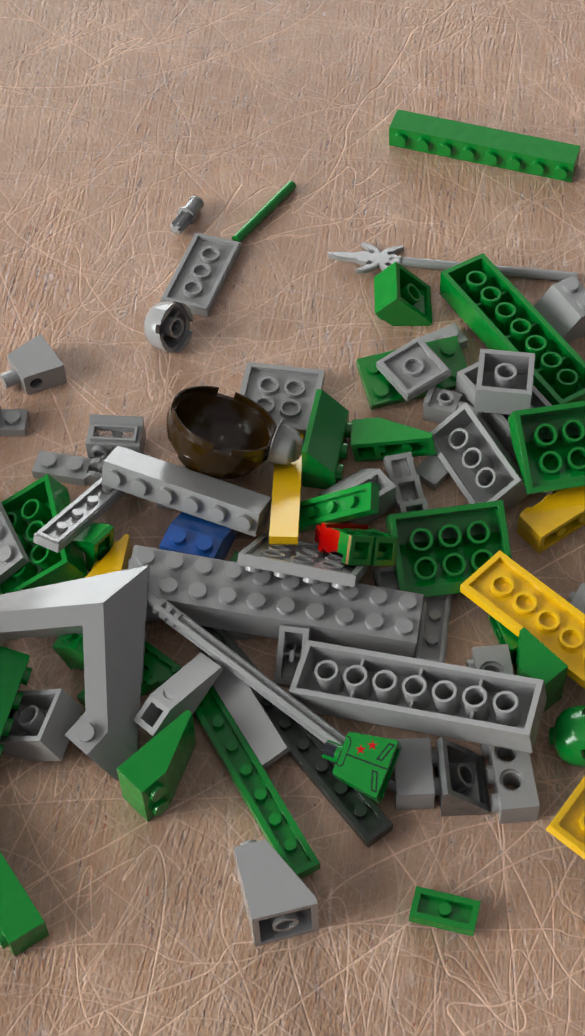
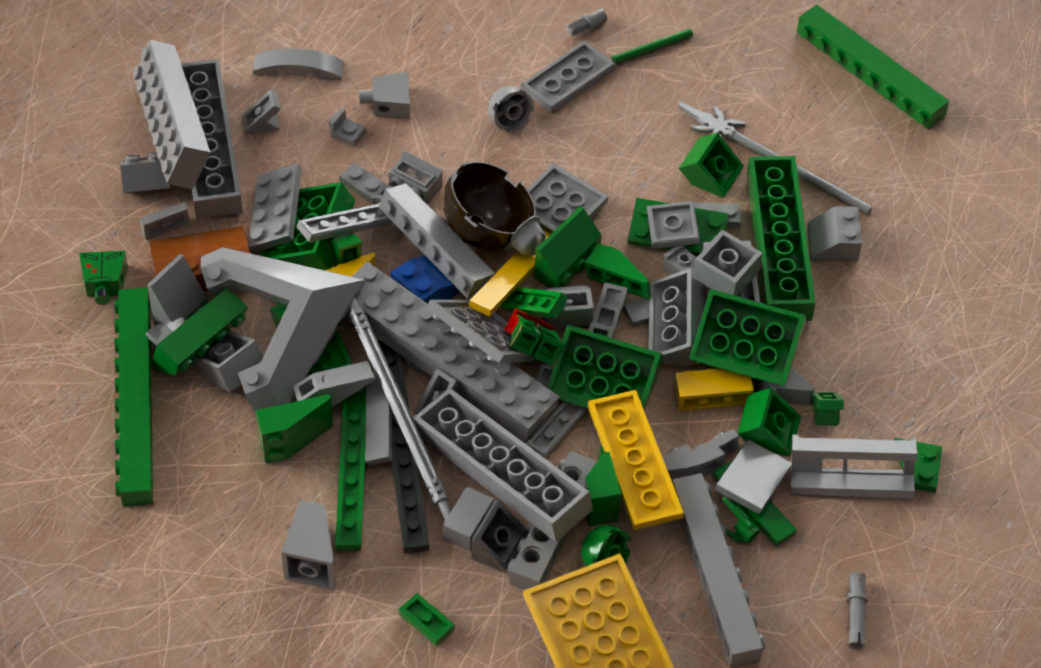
camera: 25 degrees right, 0 degrees up
(364, 762) = (432, 491): green torso -> none

